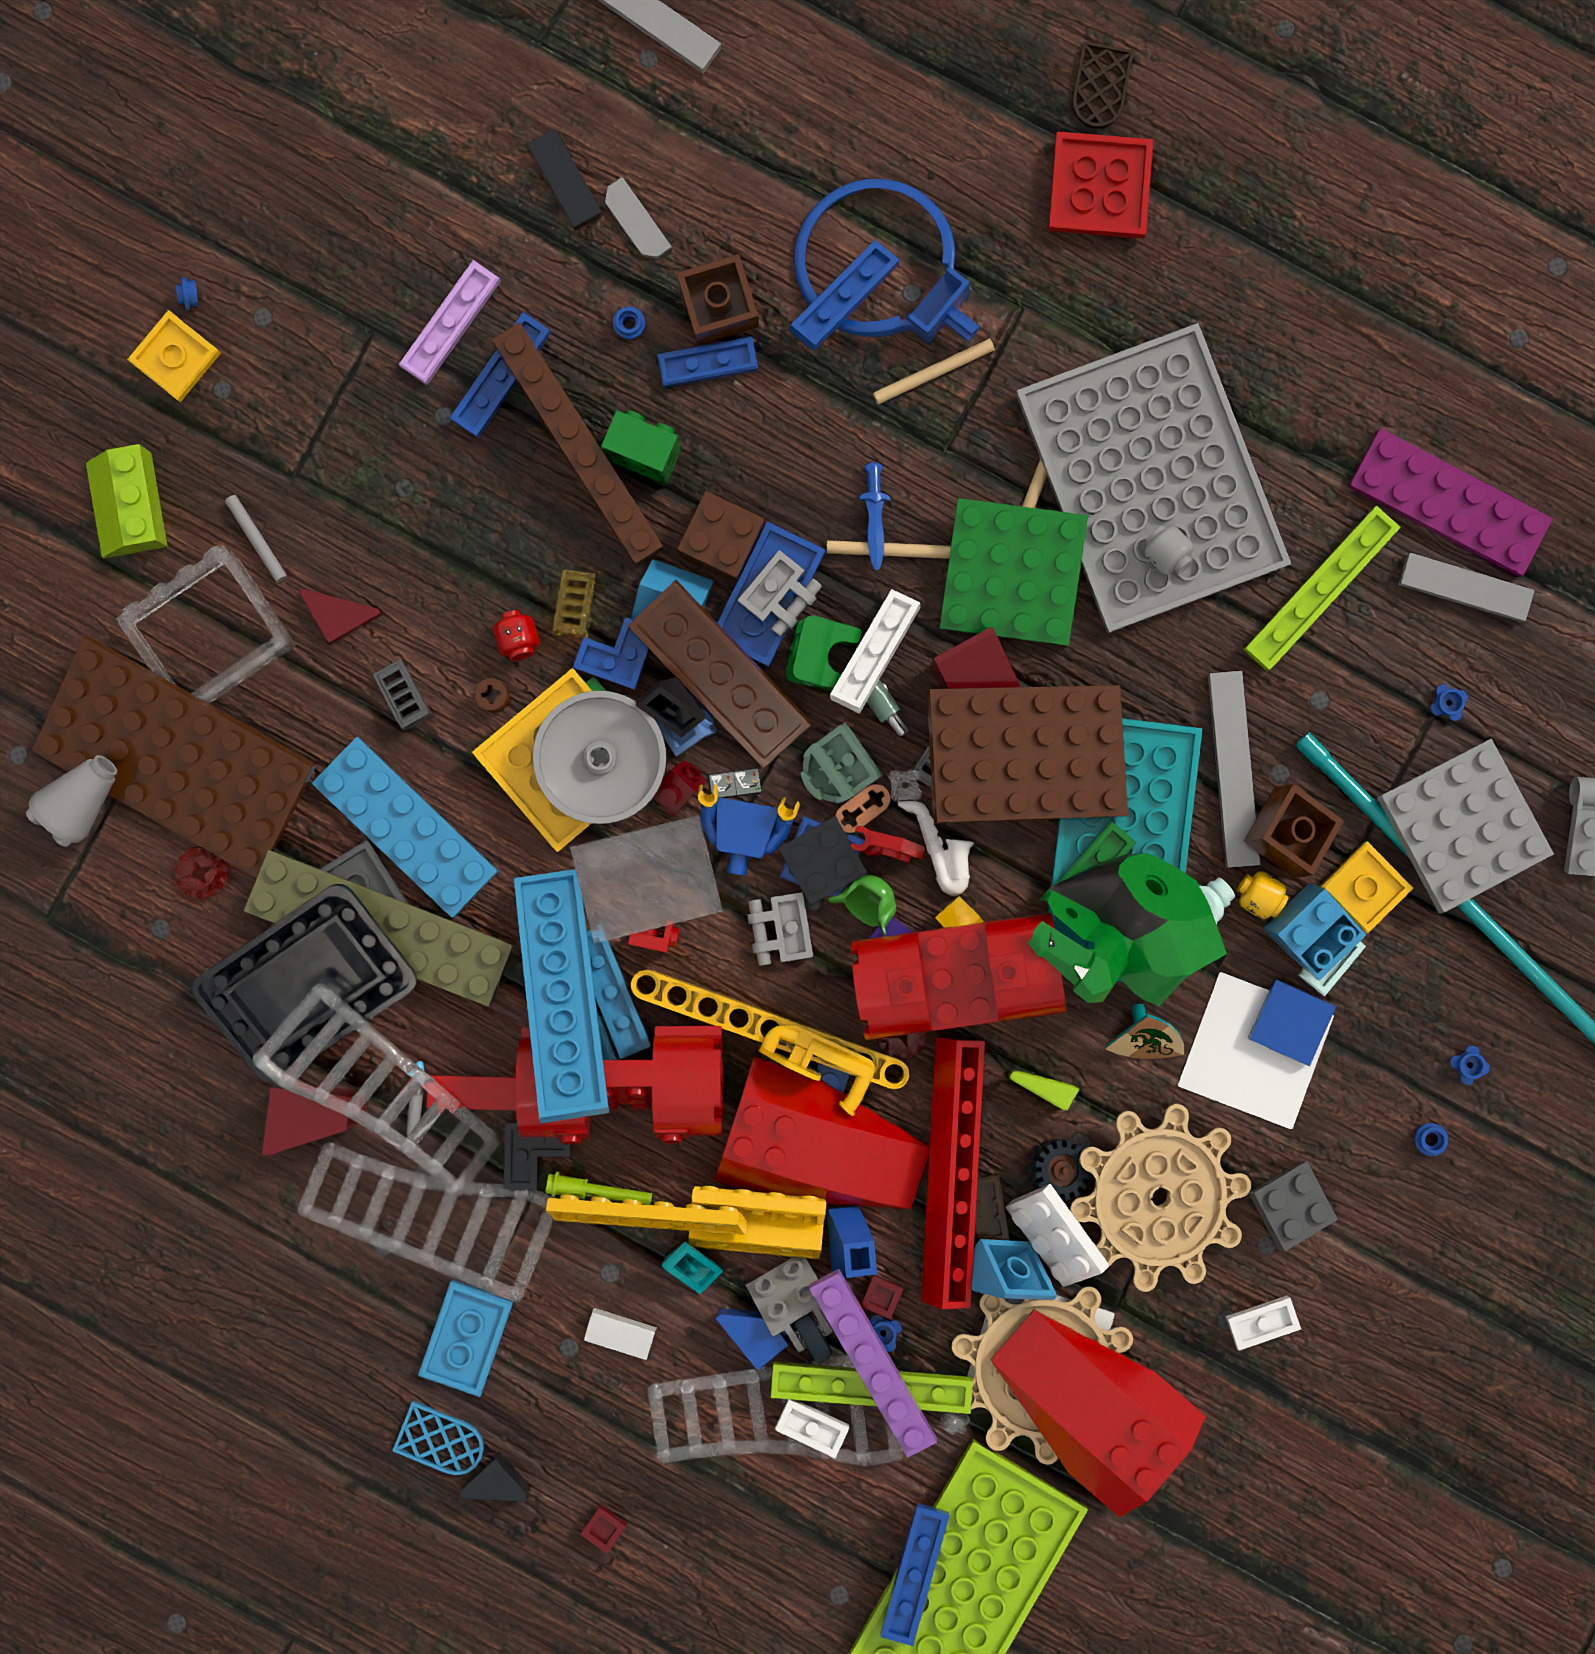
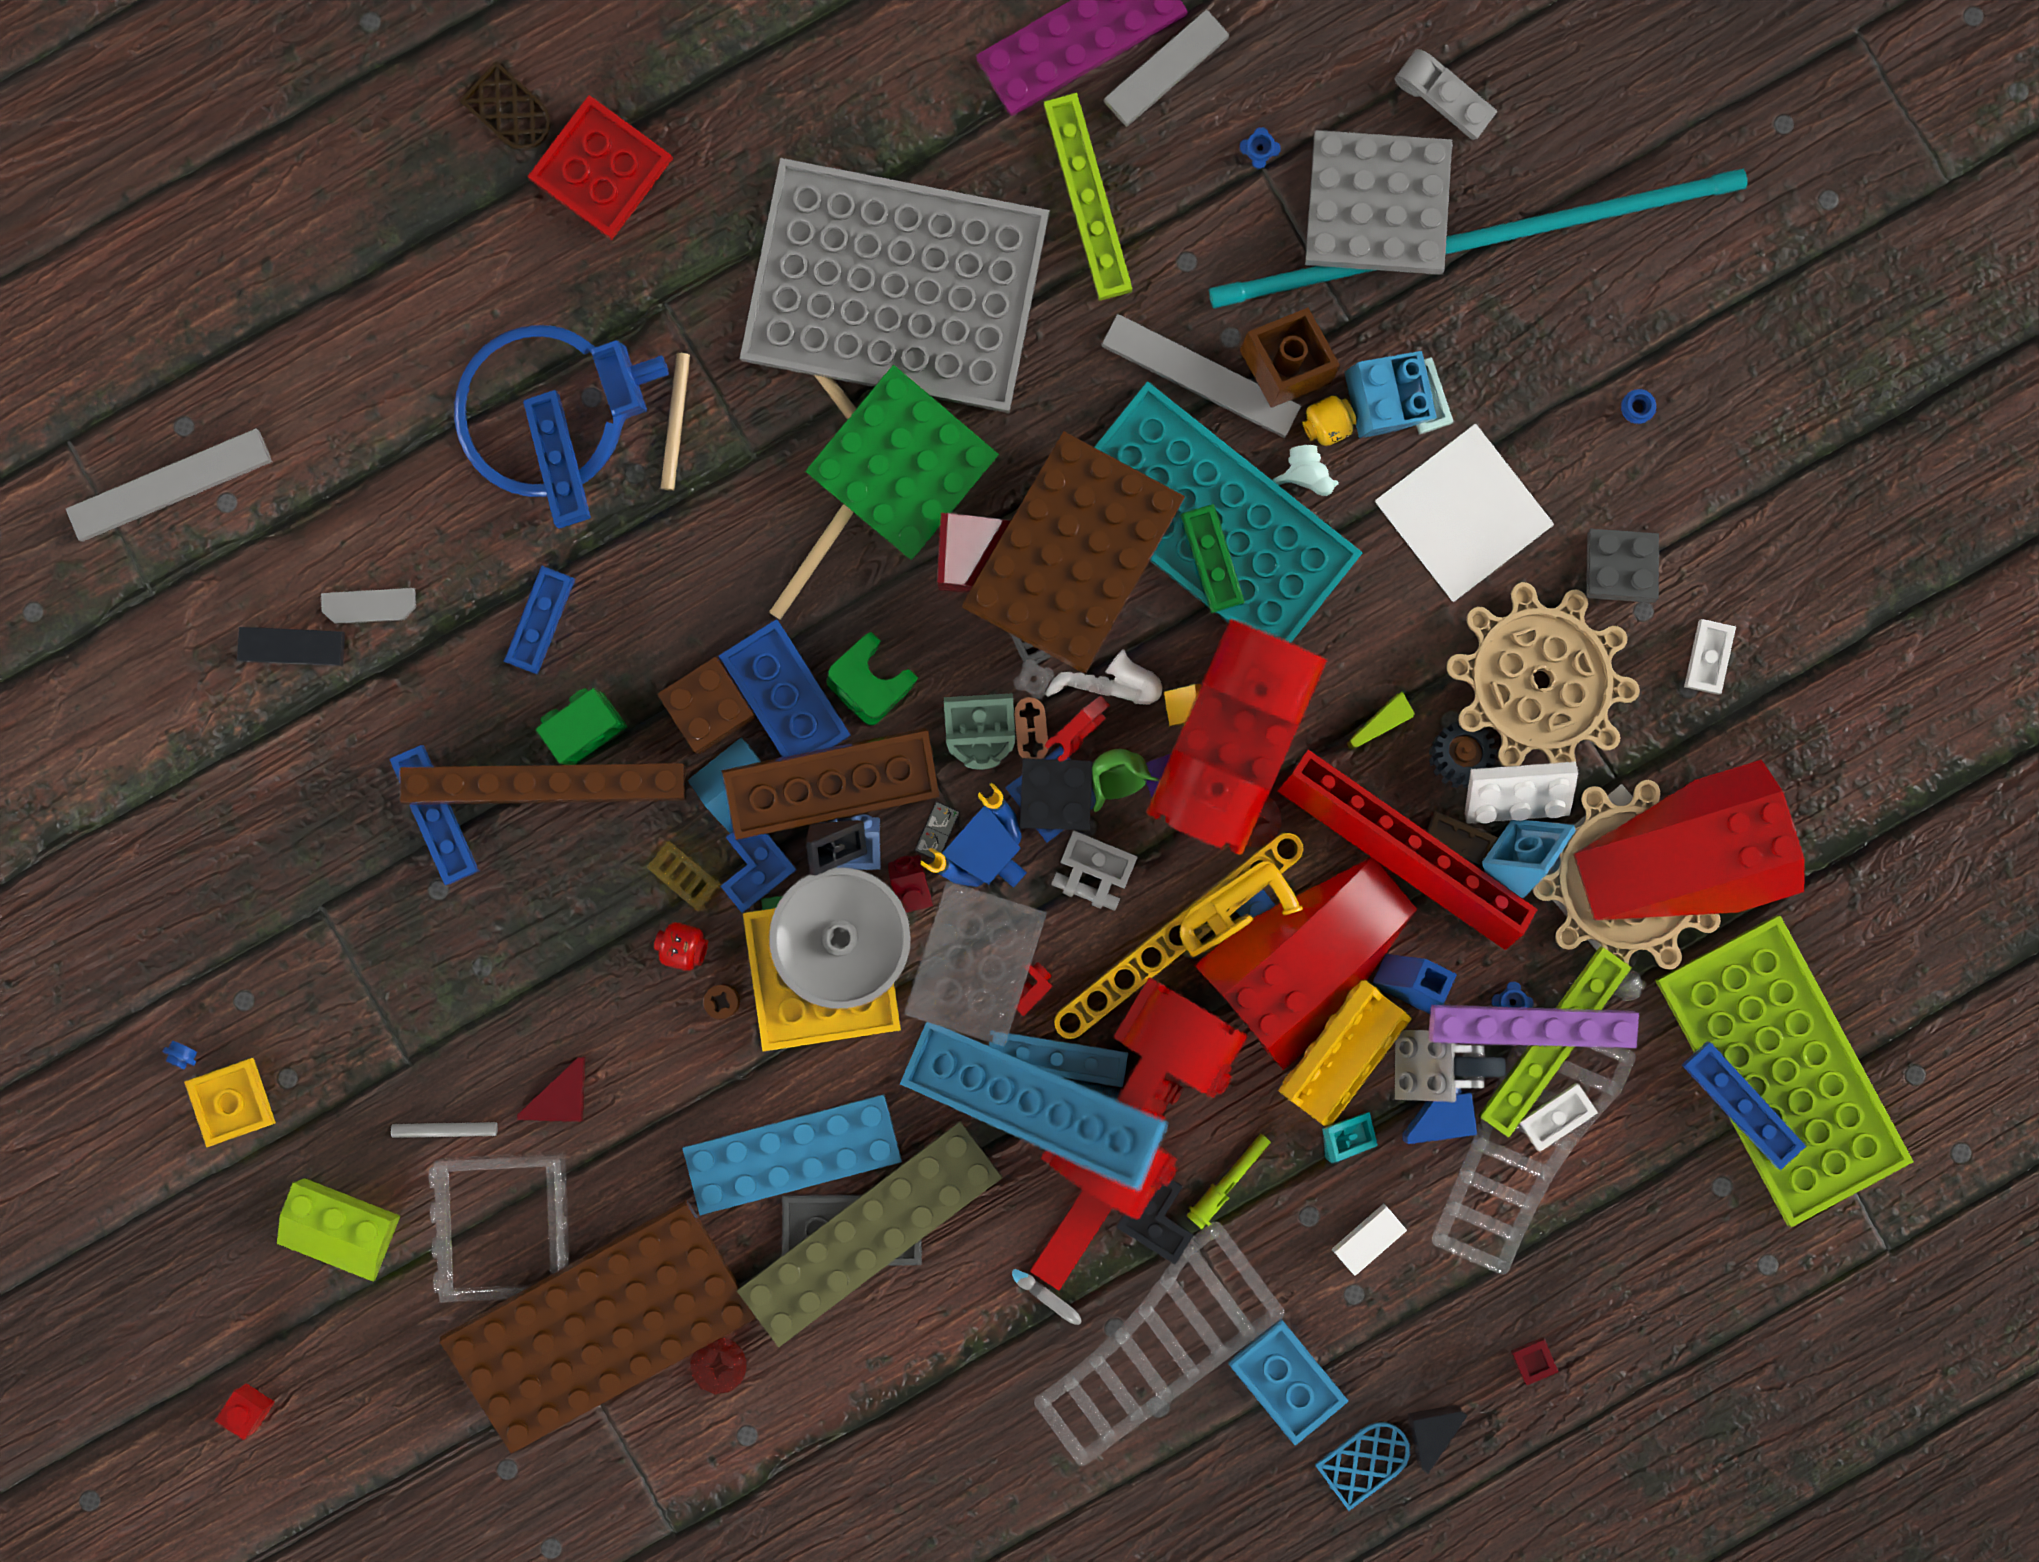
camera: 55 degrees left, 0 degrees up
(73, 800) = (582, 1441): light grey cone -> none
(298, 1120) = (1000, 1399): dark red slope -> none
(321, 941) = (878, 1331): black wedge -> none
(353, 1110) = (1020, 1354): clear bar -> none
(413, 718) = (698, 1083): dark grey slope -> none
(449, 322) = (356, 831): lavender tile -> none
(625, 314) = (449, 665): blue plate -> none
(634, 1214) = (1285, 1138): yellow plate -> none
(718, 299) = (489, 575): reddish brown brick -> none
(772, 586) = (781, 688): light grey plate -> none
(874, 501) = (761, 548): blue sword -> none
(875, 651) = (897, 630): white plate -> none
(881, 1296) = (1479, 983): dark red plate -> none
(886, 708) = (949, 653): sand green piece -> none
(1144, 923) = (1289, 541): green piece -> none
(1147, 1038) = (1394, 602): shield -> none
(1169, 550) = (969, 311): light grey head -> none
(1291, 1022) = (1459, 465): blue tile -> none
(1366, 887) = (1379, 323): yellow plate -> none
(1479, 1065) = (1598, 322): blue plate -> none

